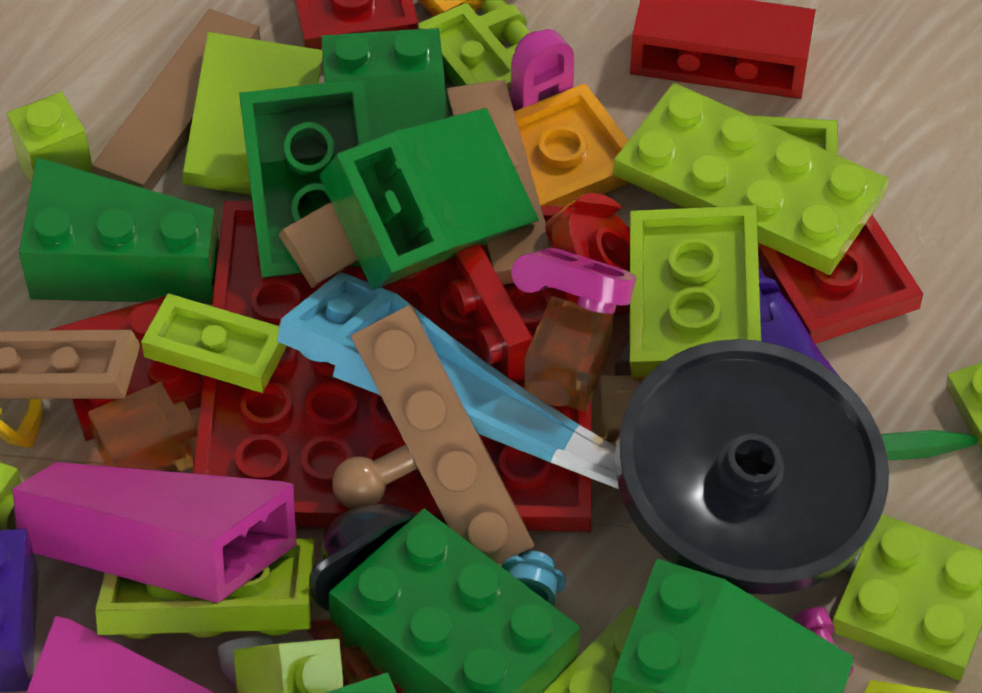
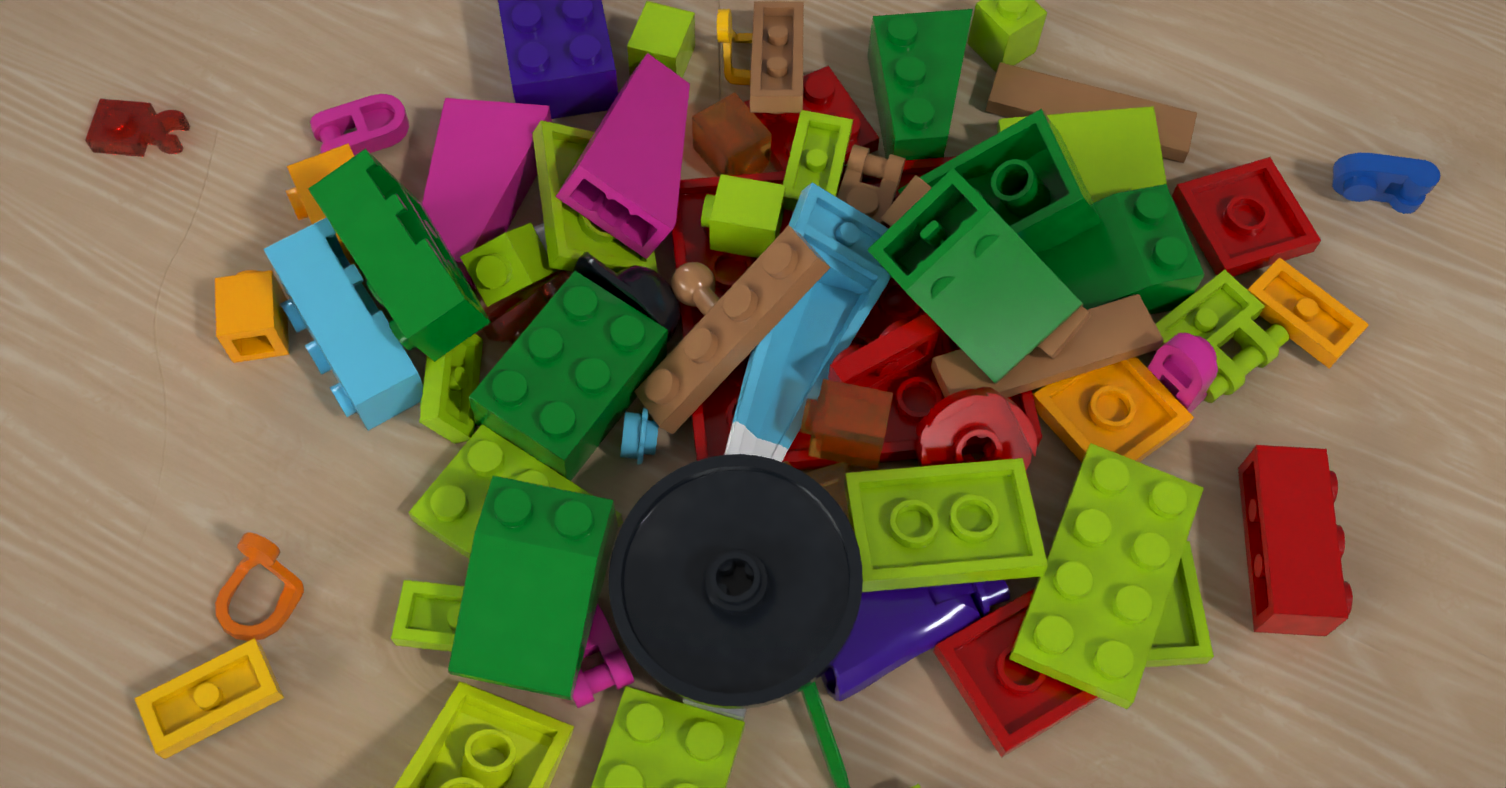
camera: 80 degrees right, 10 degrees up
(272, 294) = (867, 198): none -> medium nougat plate
(280, 416) = (744, 215): none -> lime brick
(595, 283) = (909, 405): dark pink plate -> none

